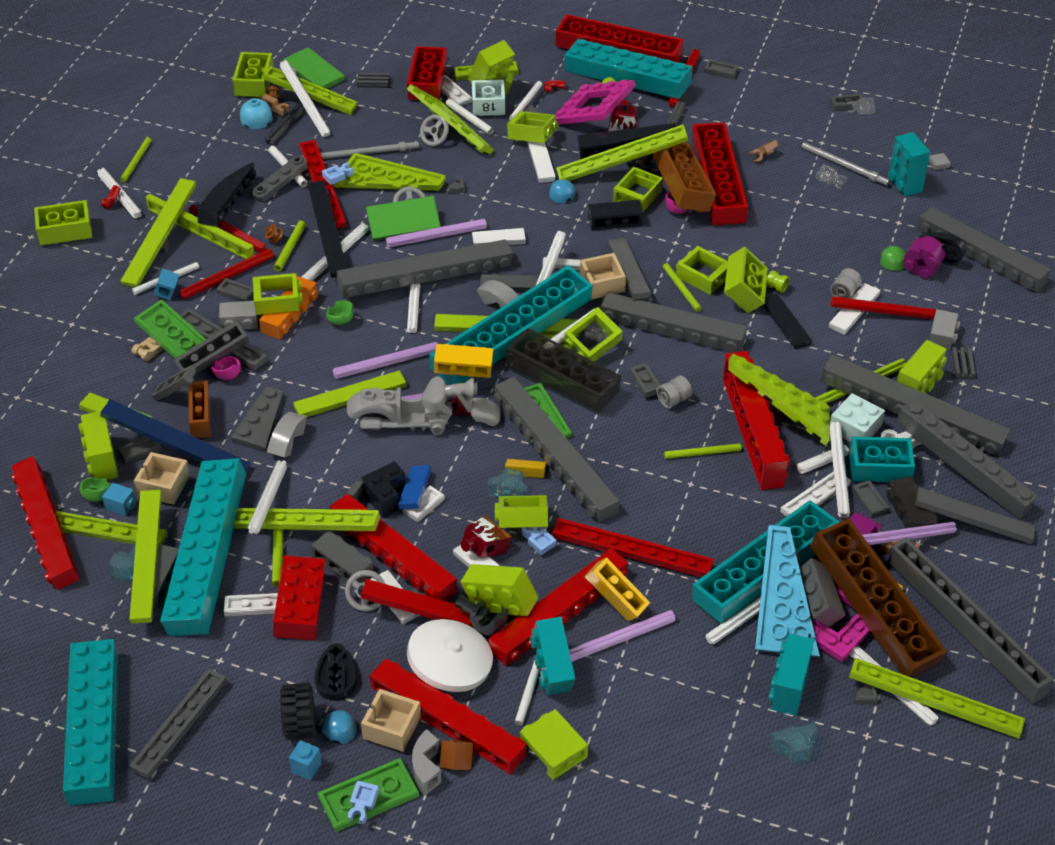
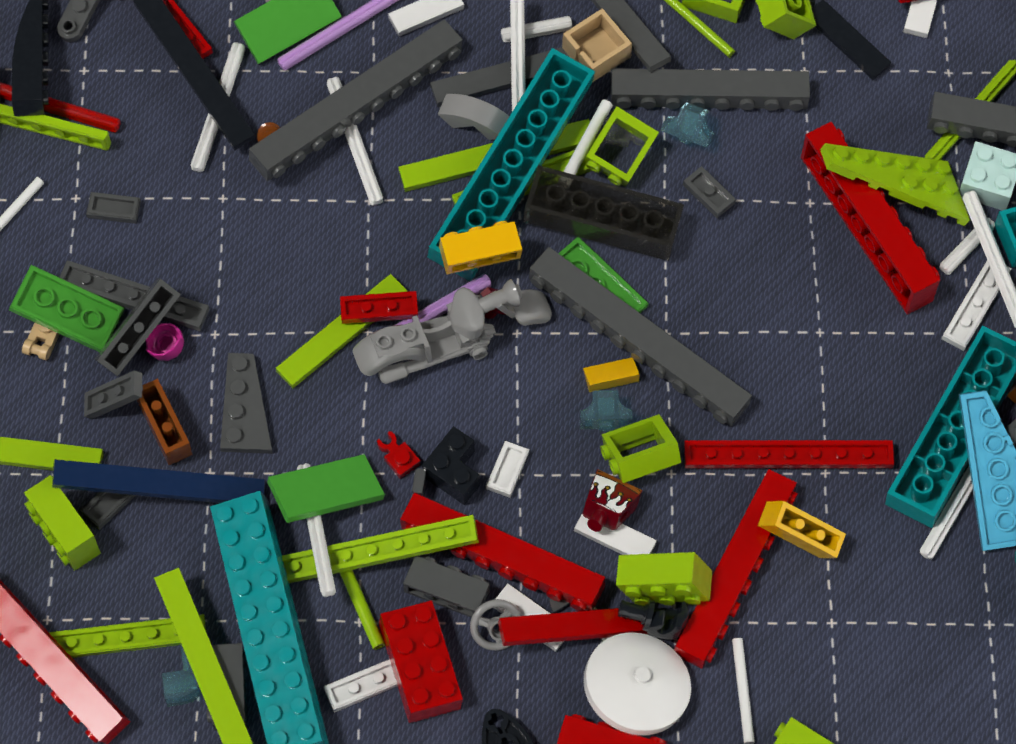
camera: 20 degrees left, 20 degrees up
(93, 489) = (85, 585): bright green hair -> none
(119, 499) = (124, 590): dark azure brick -> none
(163, 474) = (168, 543): tan piece -> none
(166, 284) = (17, 230): dark azure brick -> none
(227, 273) = (88, 184): red axle -> none
(242, 312) = (139, 251): light grey brick -> none
(273, 233) = (122, 97): dark orange wheel -> none
(278, 303) = (188, 228): lime window -> none
(278, 324) = (200, 217): orange brick -> none
(287, 475) = (325, 488): none -> bright green tile
(288, 427) = (292, 423): light grey brick -> none
(289, 246) = (151, 109): lime piece -> none
(341, 313) = (274, 205): bright green hair -> none
(349, 474) = (399, 458): none -> red plate
(368, 380) = (378, 307): none -> red plate
(384, 360) = (364, 261): lavender axle -> none
(414, 487) = (489, 451): blue tile -> none
(539, 540) = (674, 480): light blue plate -> none
(552, 656) = (764, 650): teal brick -> none
(621, 635) = (818, 586): lavender axle -> none
(649, 338) = (690, 125): none -> clear light blue brick
(674, 391) = (755, 200): light grey wheel -> none
(702, 451) = (817, 279): lime bar -> none

